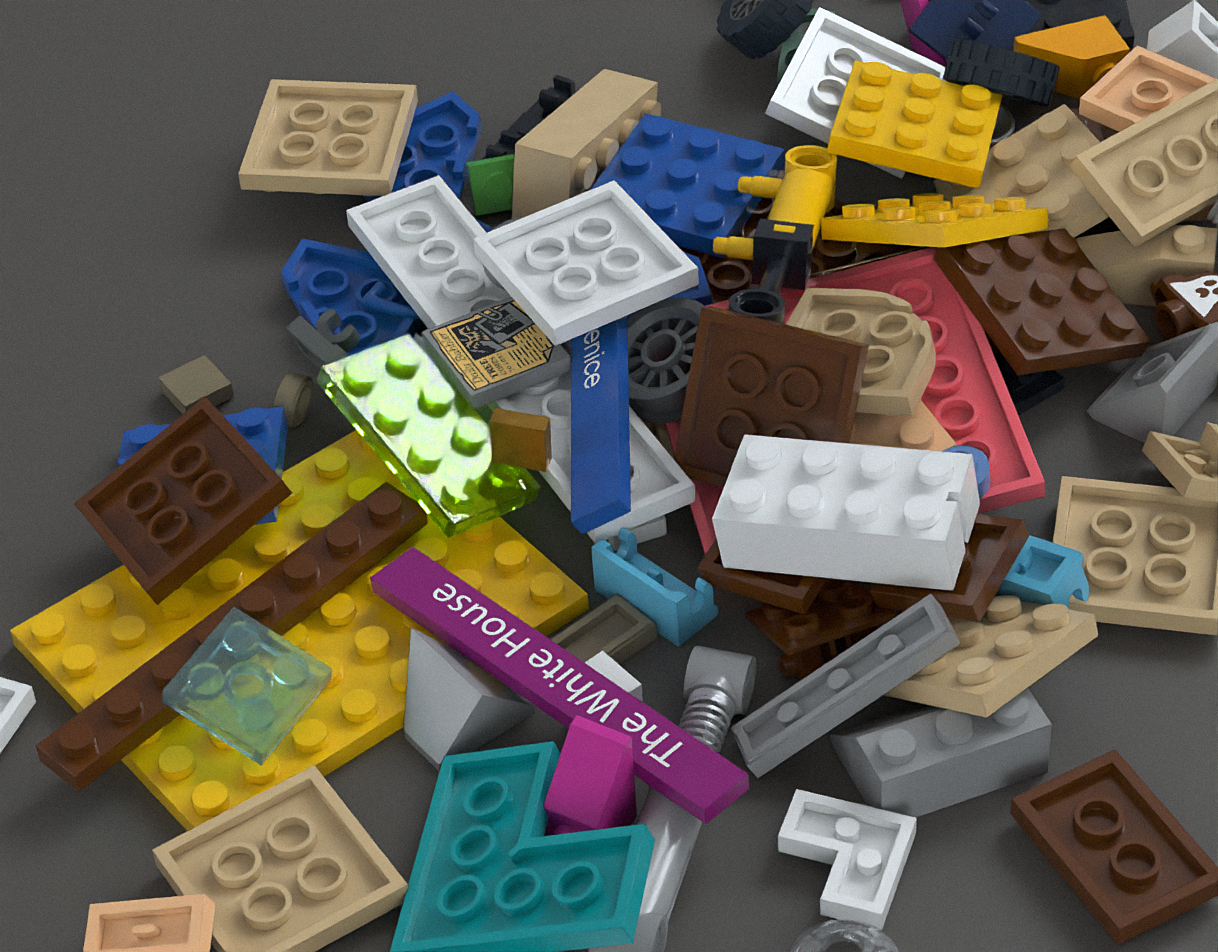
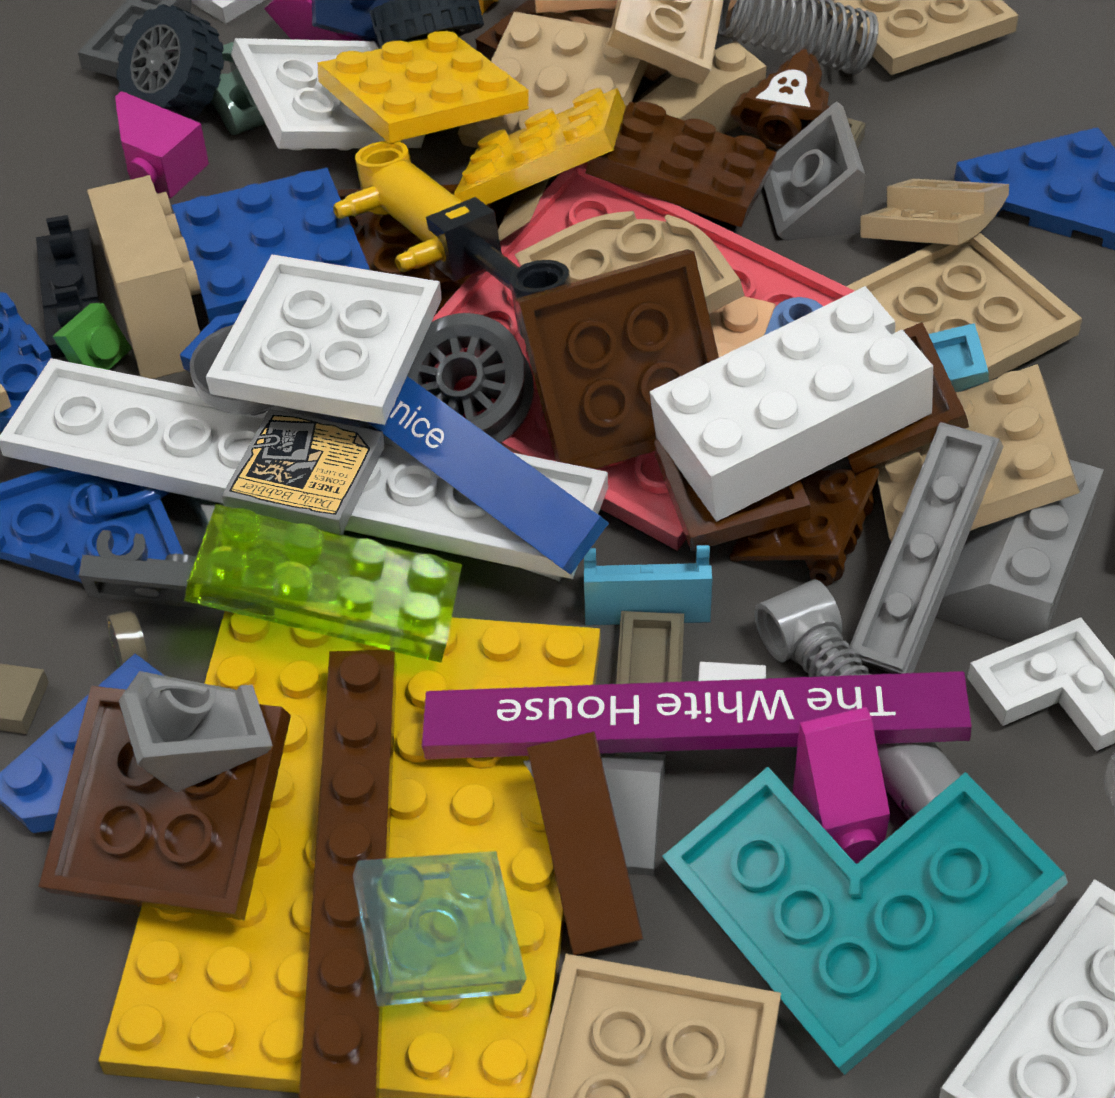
camera: 45 degrees left, 5 degrees up
(210, 450) = (191, 728): none -> light grey slope
(395, 707) = (585, 844): none -> reddish brown tile
(520, 439) = (436, 527): pearl gold tile -> none
(701, 65) = (160, 144): none -> dark pink slope

